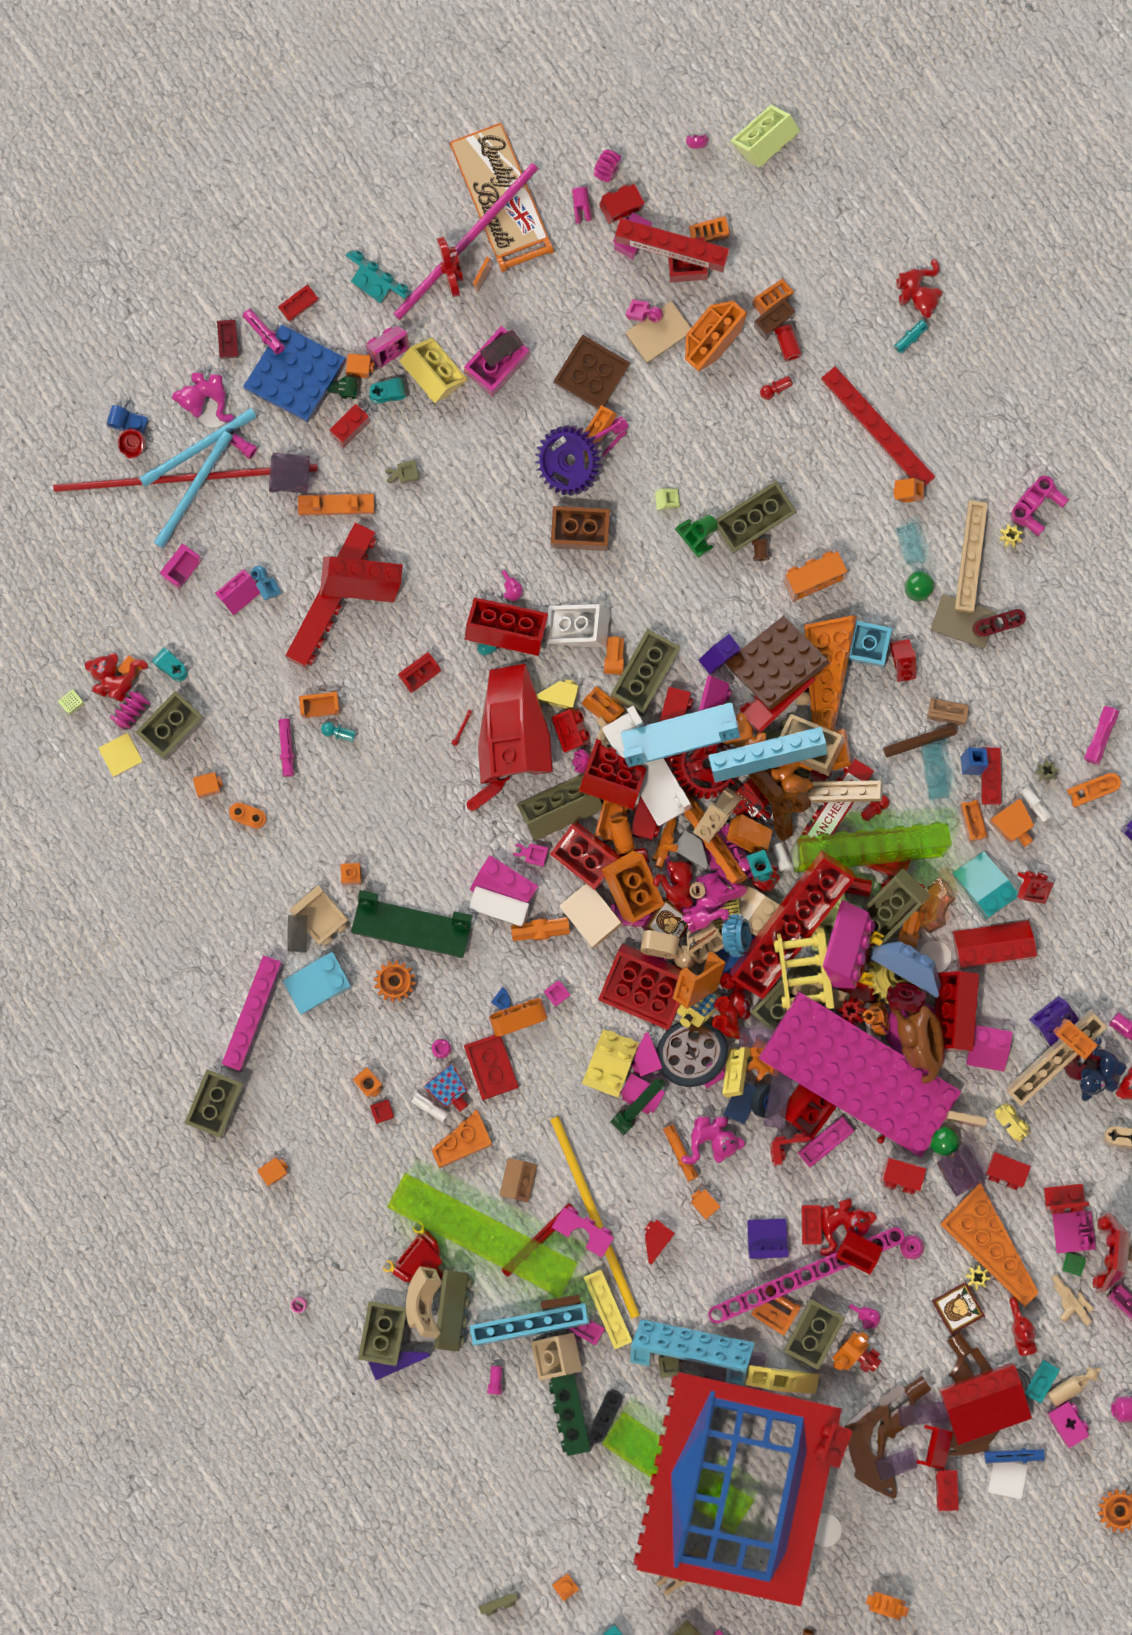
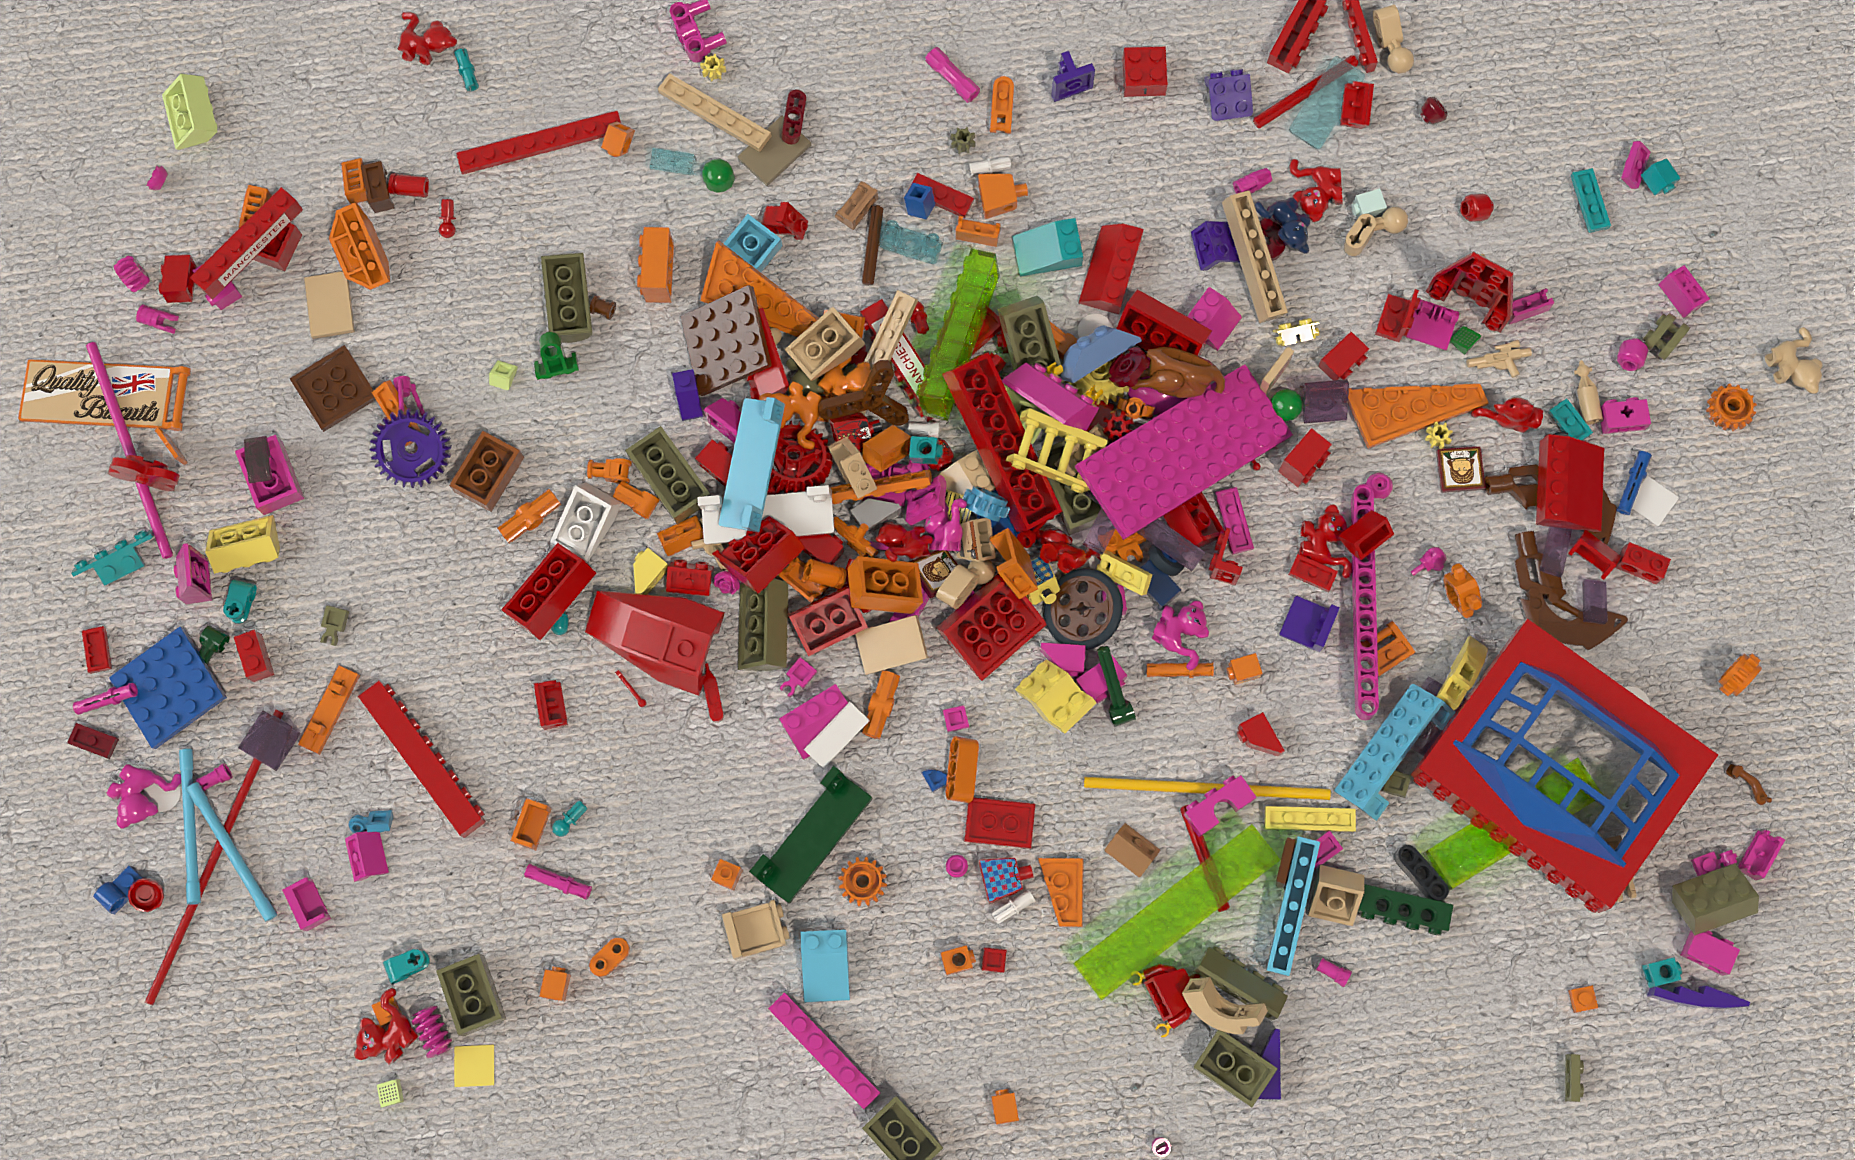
camera: 65 degrees left, 5 degrees down
(297, 933) = (762, 961): clear smoke slope -> none
(359, 366) = (197, 616): orange brick -> none
(360, 579) = (420, 717): red slope -> none
(513, 588) = (512, 568): dark pink piece -> none
(561, 579) = (529, 516): none -> orange piece
(629, 627) = (612, 471): none -> orange connector
(640, 310) = (296, 310): dark pink plate -> none
(693, 890) = (920, 519): tan hinge -> none
(768, 754) = (816, 385): medium azure brick -> none
(814, 1334) = (1428, 620): olive brick -> none
(833, 1445) = (1563, 644): red bracket -> none
(869, 1360) = (1481, 576): red gear -> none
(934, 909) = (1057, 310): clear orange brick -> none
(1034, 887) = (1074, 199): red bracket -> none
(1075, 1038) = (1248, 222): orange hinge -> none

